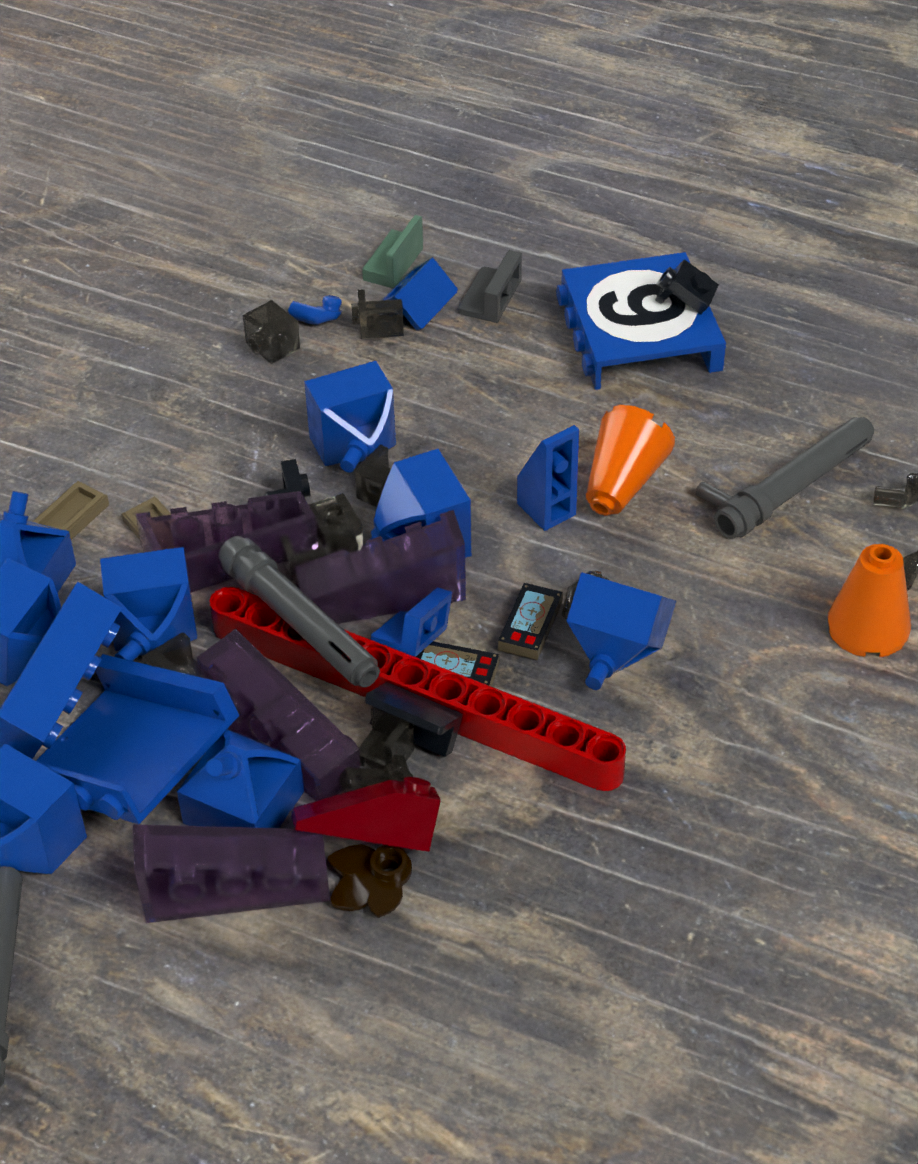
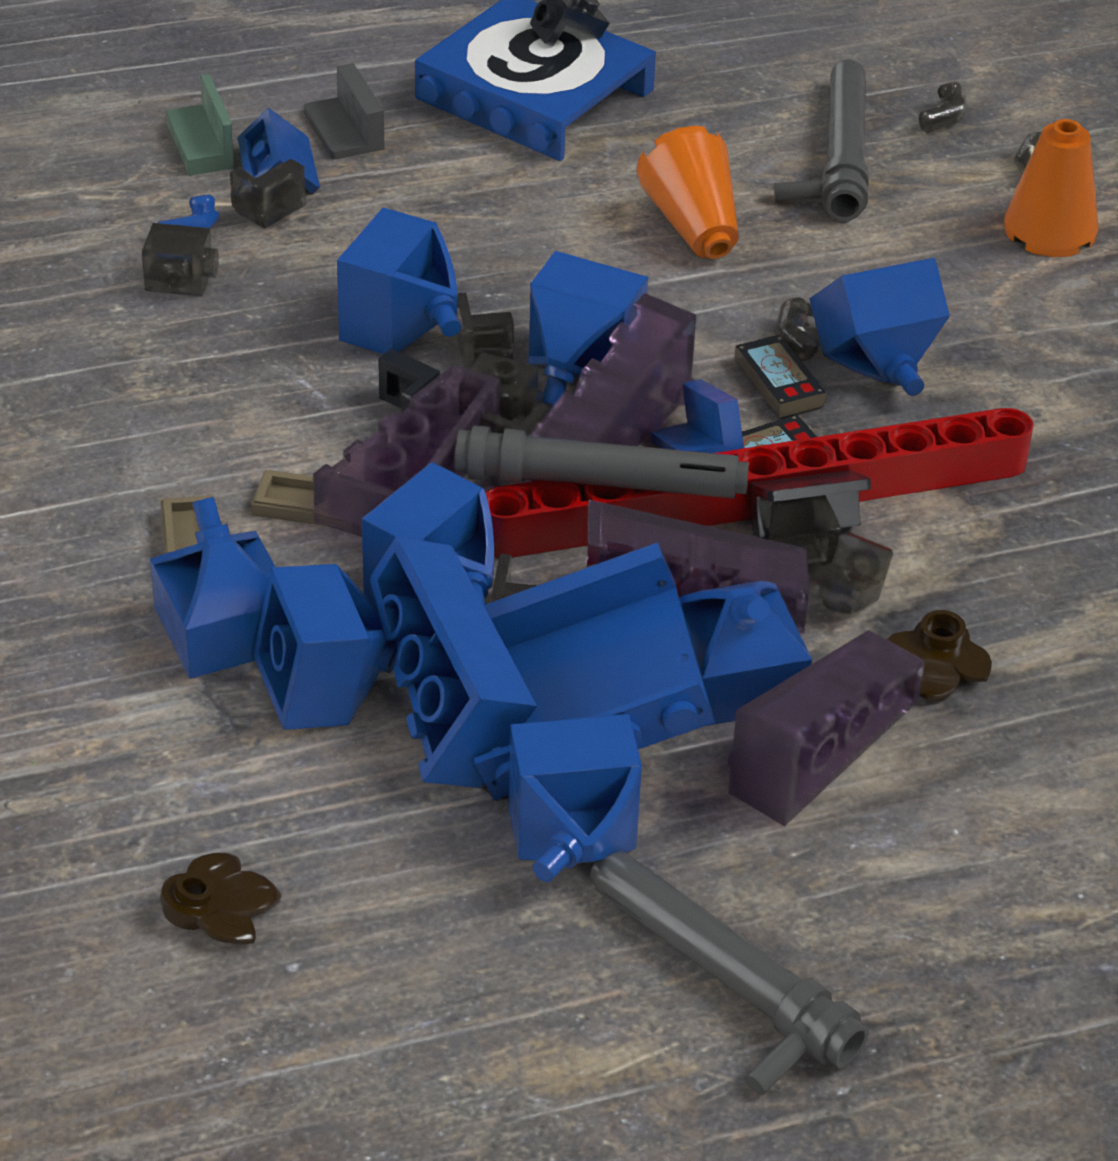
camera: 45 degrees left, 5 degrees down
(380, 813) = (898, 585): dark red slope -> none
(550, 480) = (664, 235): blue slope -> none

